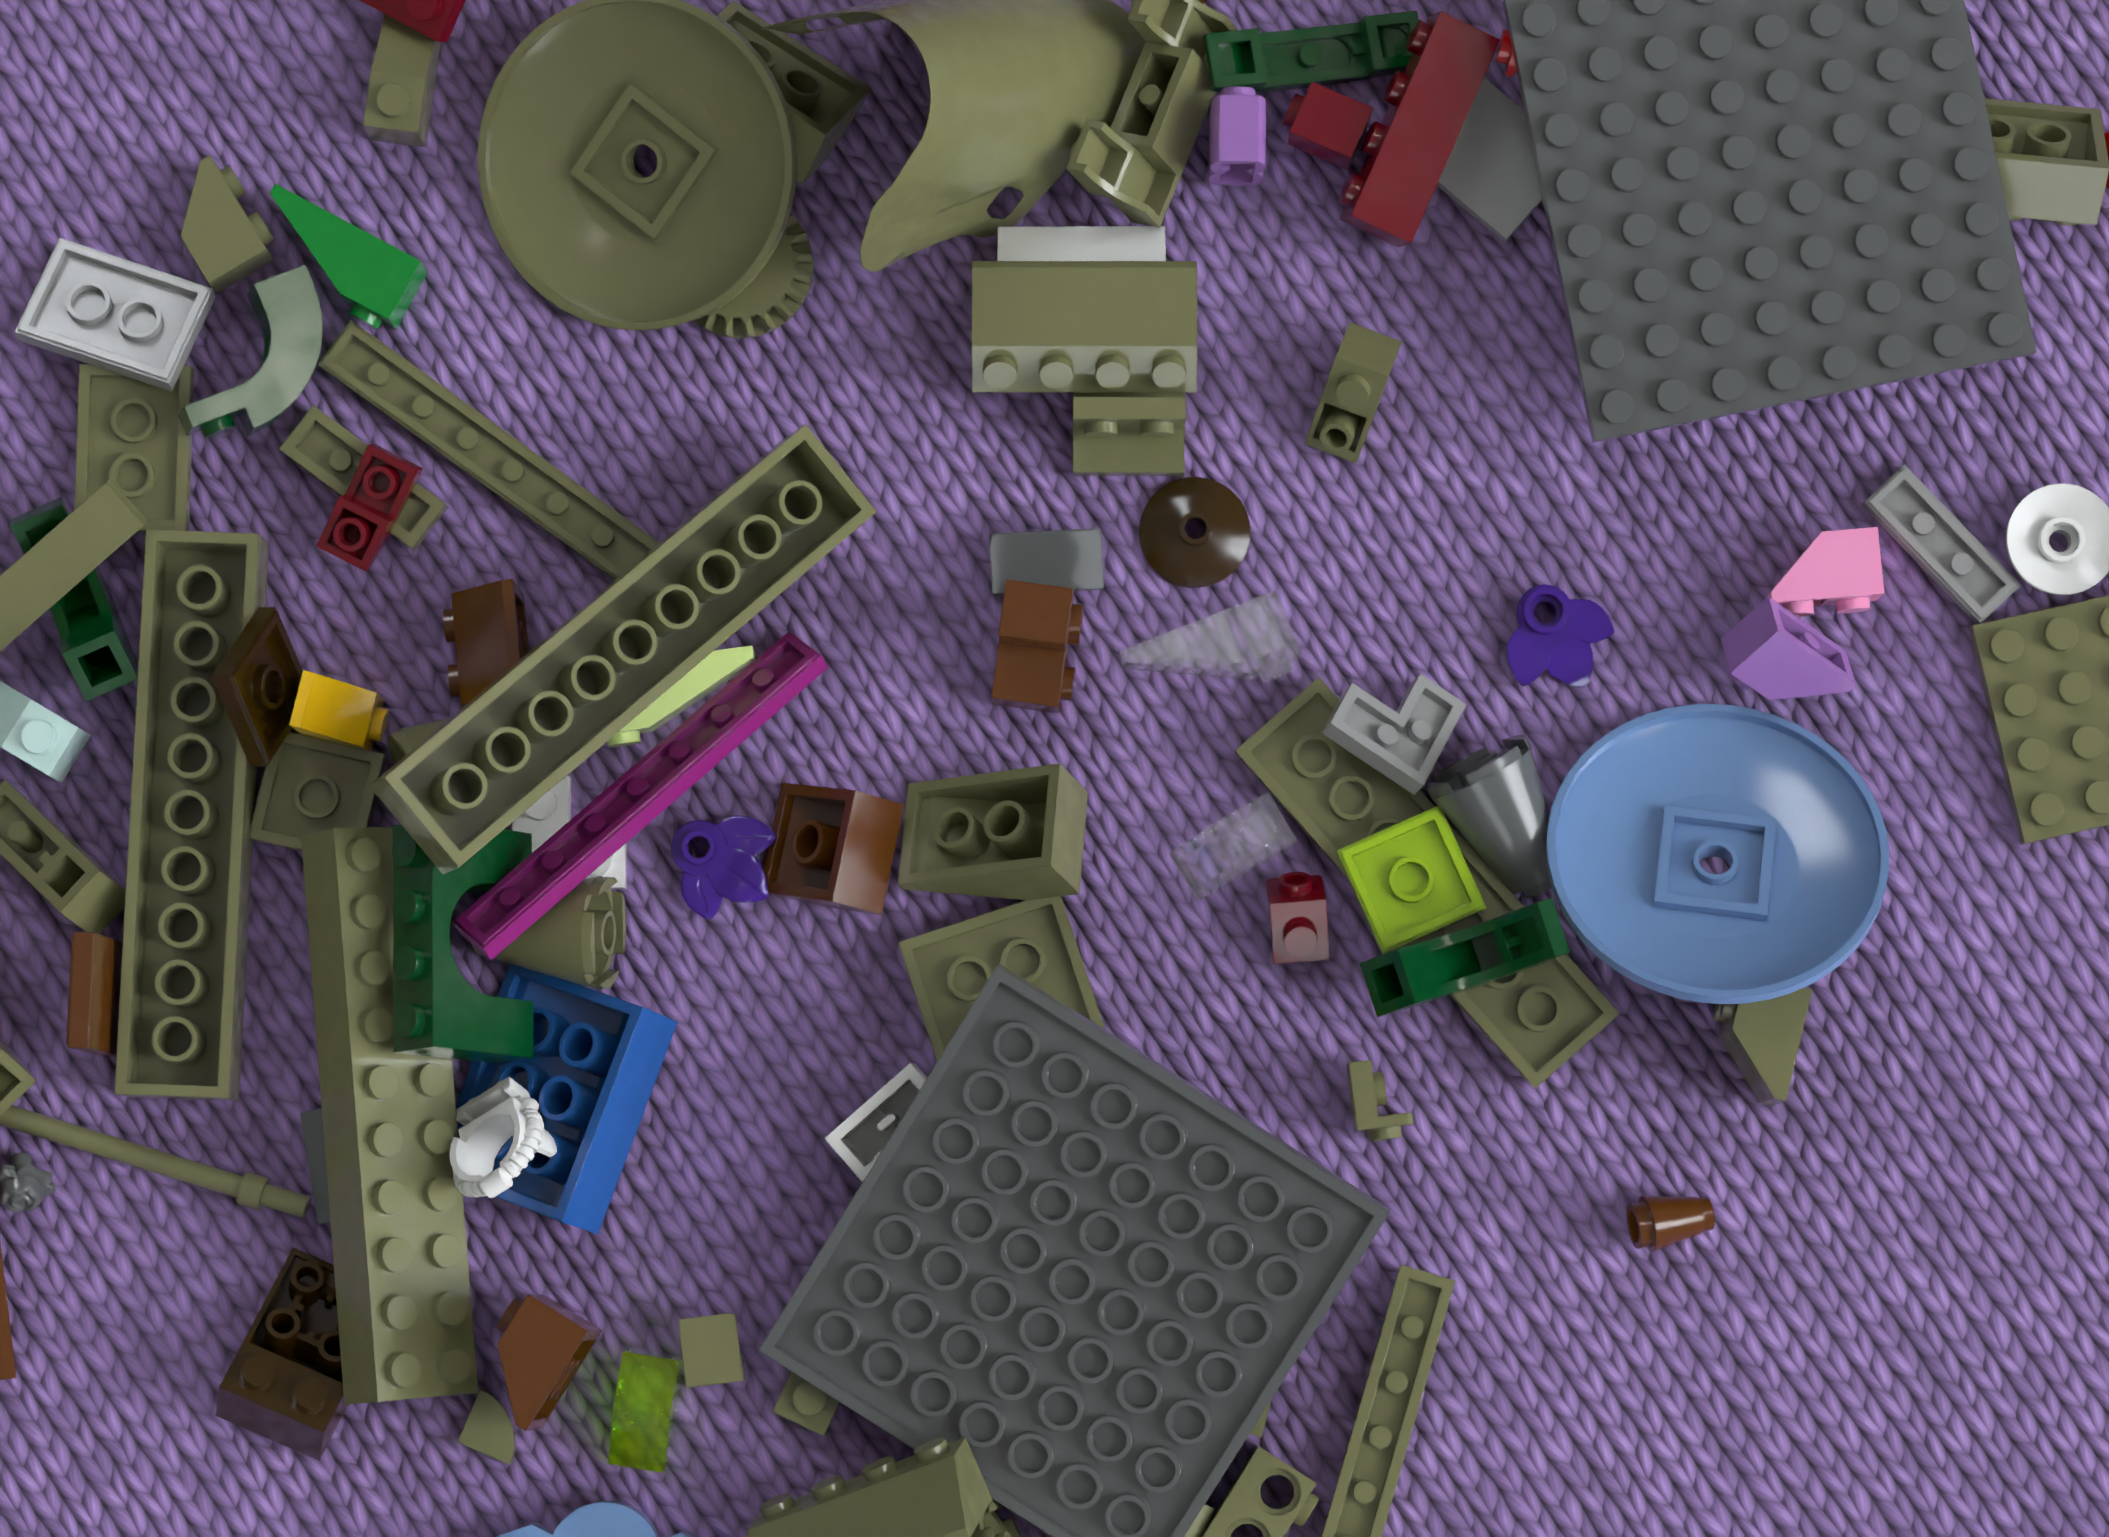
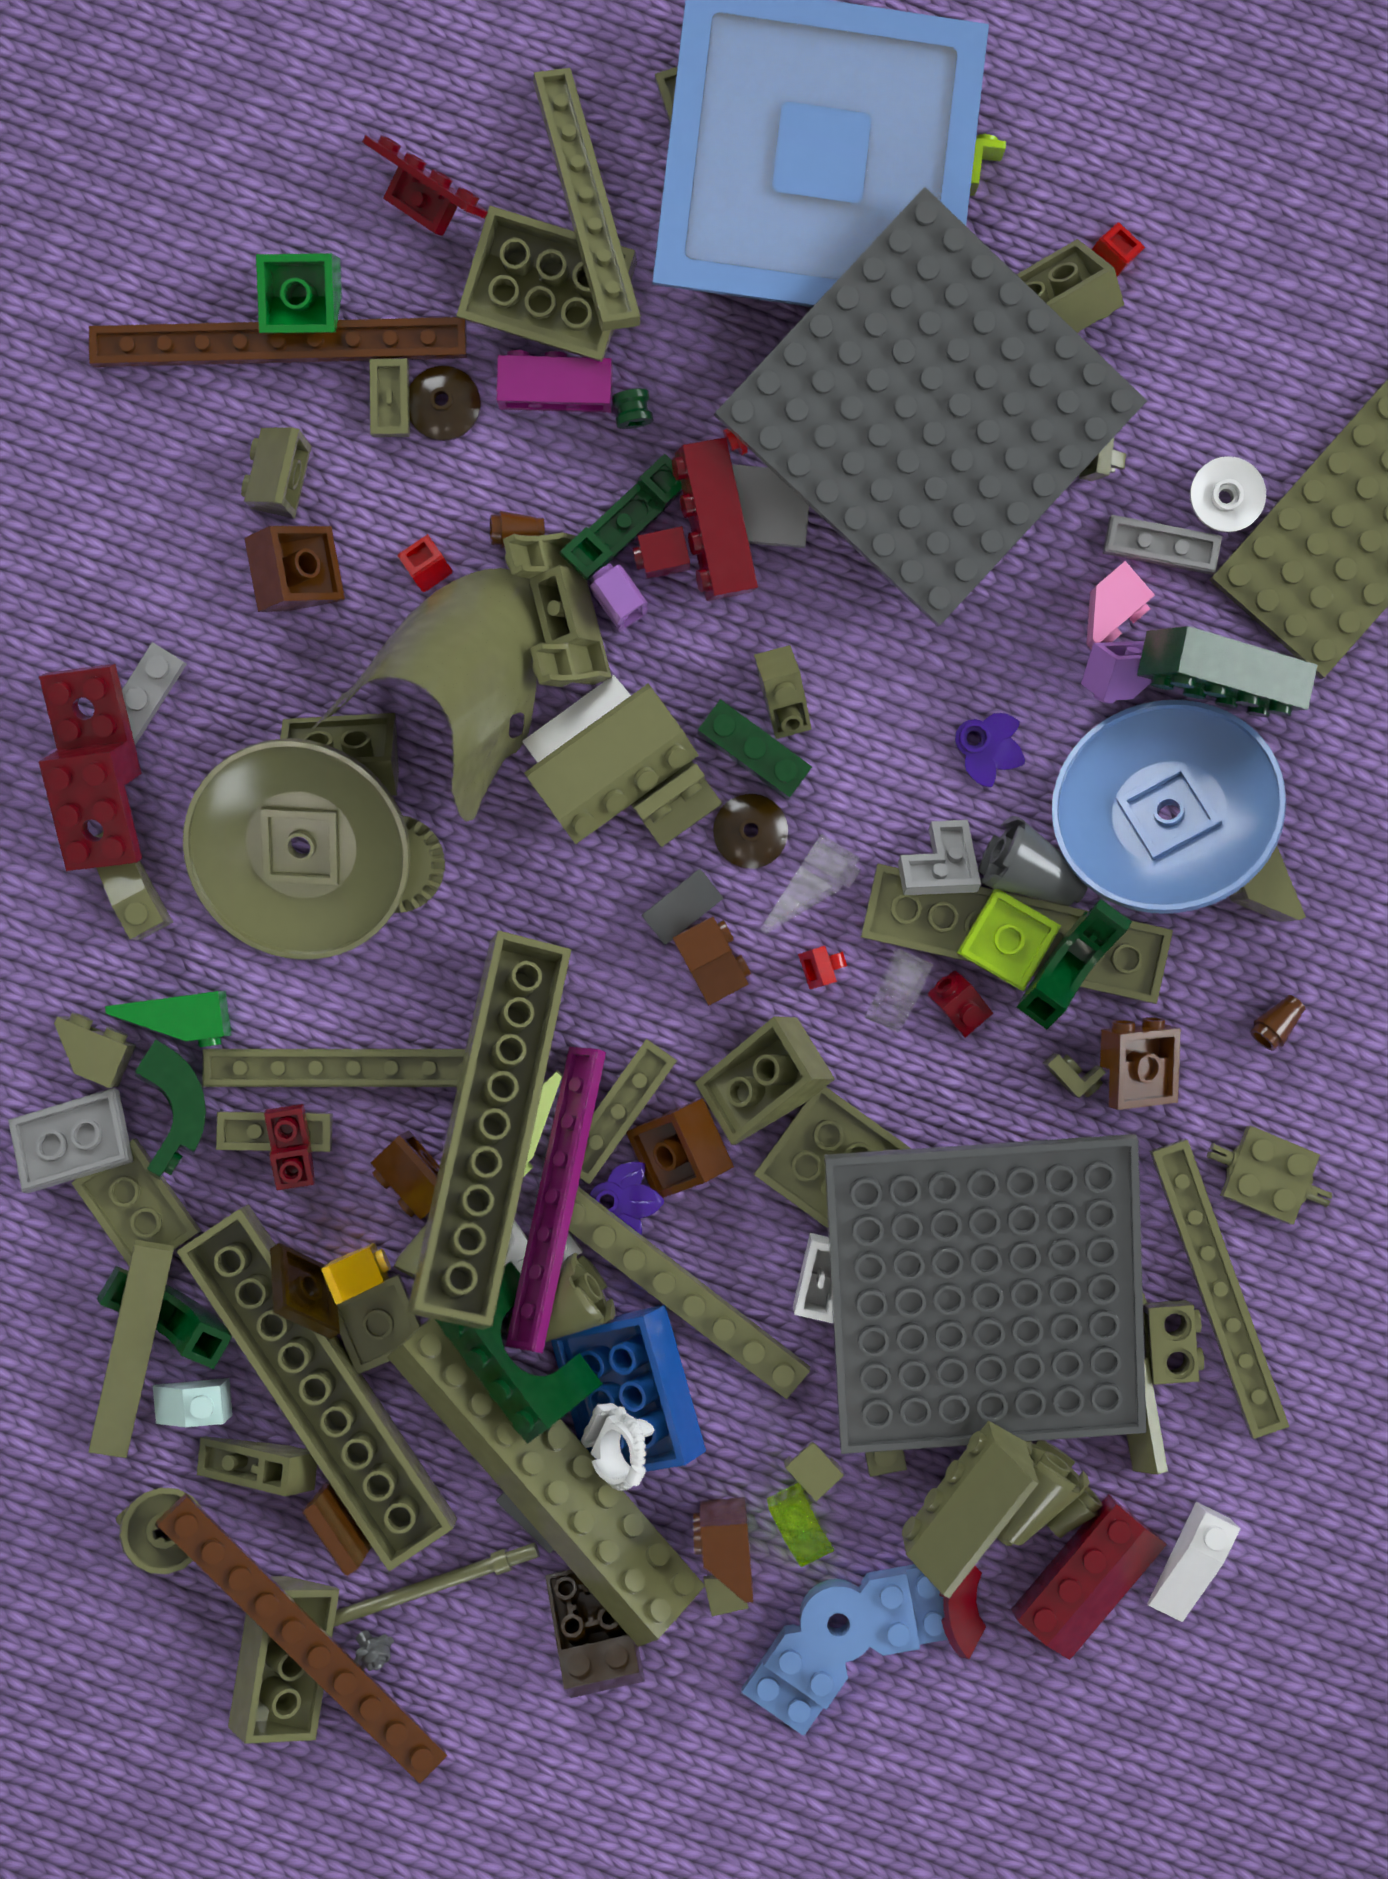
camera: 35 degrees left, 5 degrees up
(710, 1028) = (686, 1295): none -> olive plate
(801, 748) = (624, 1105): none -> olive plate
(1160, 751) = (820, 966): none -> red tile
(1268, 435) = (754, 749): none -> dark green brick
(1464, 1144) = (1141, 1063): none -> reddish brown plate
(1526, 1400) = (1269, 1175): none -> olive plate
(1902, 741) = (1226, 671): none -> brick
(1937, 393) = (1104, 463): none -> olive tile

